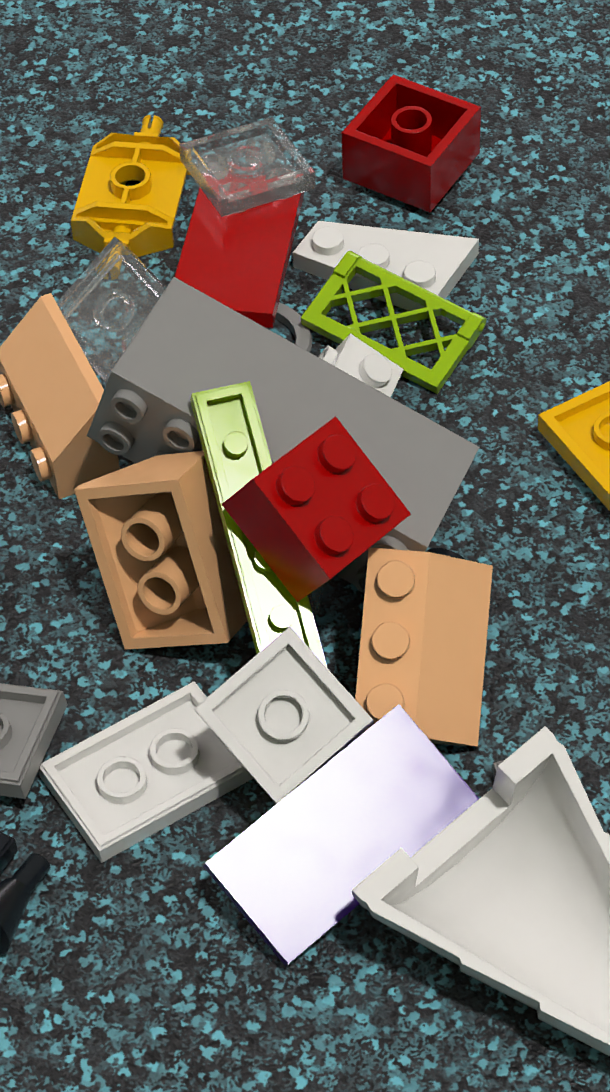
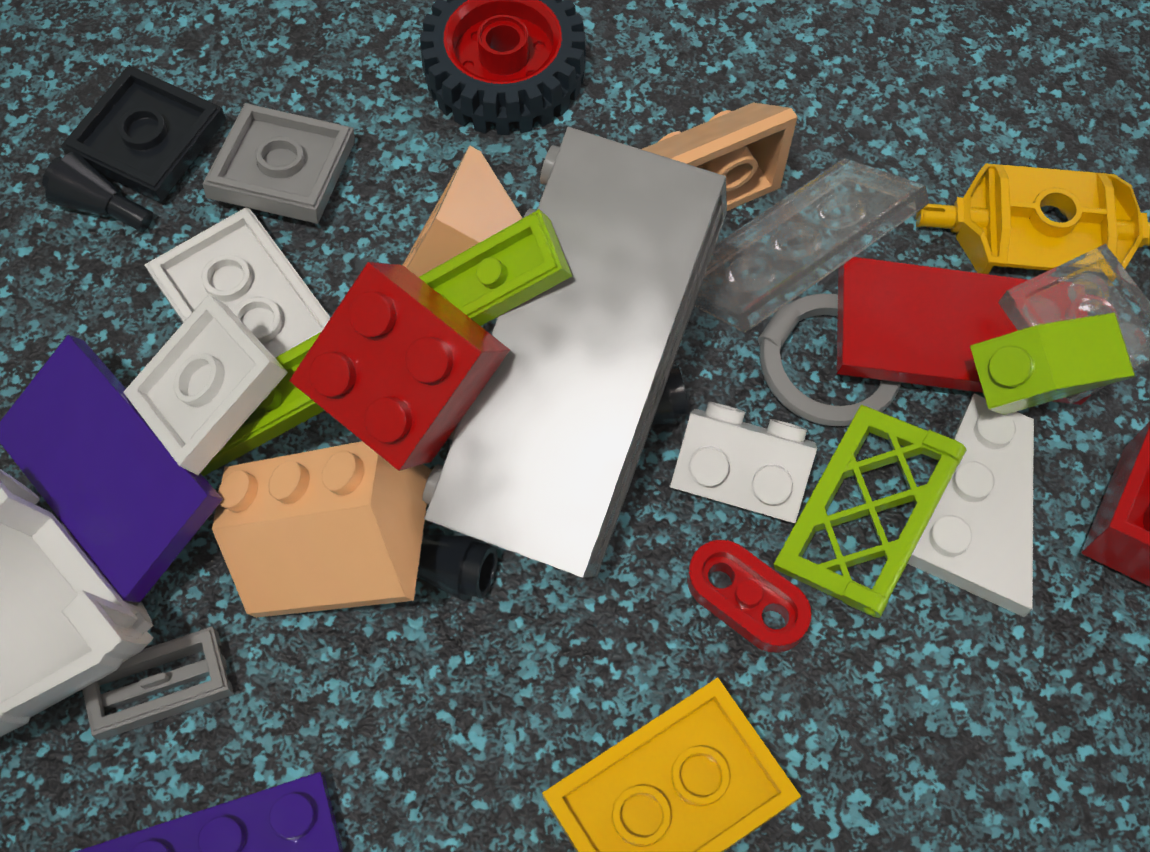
camera: 85 degrees right, 15 degrees up
(297, 180) = (1051, 362): none -> lime slope
(458, 399) = (752, 592): none -> red plate

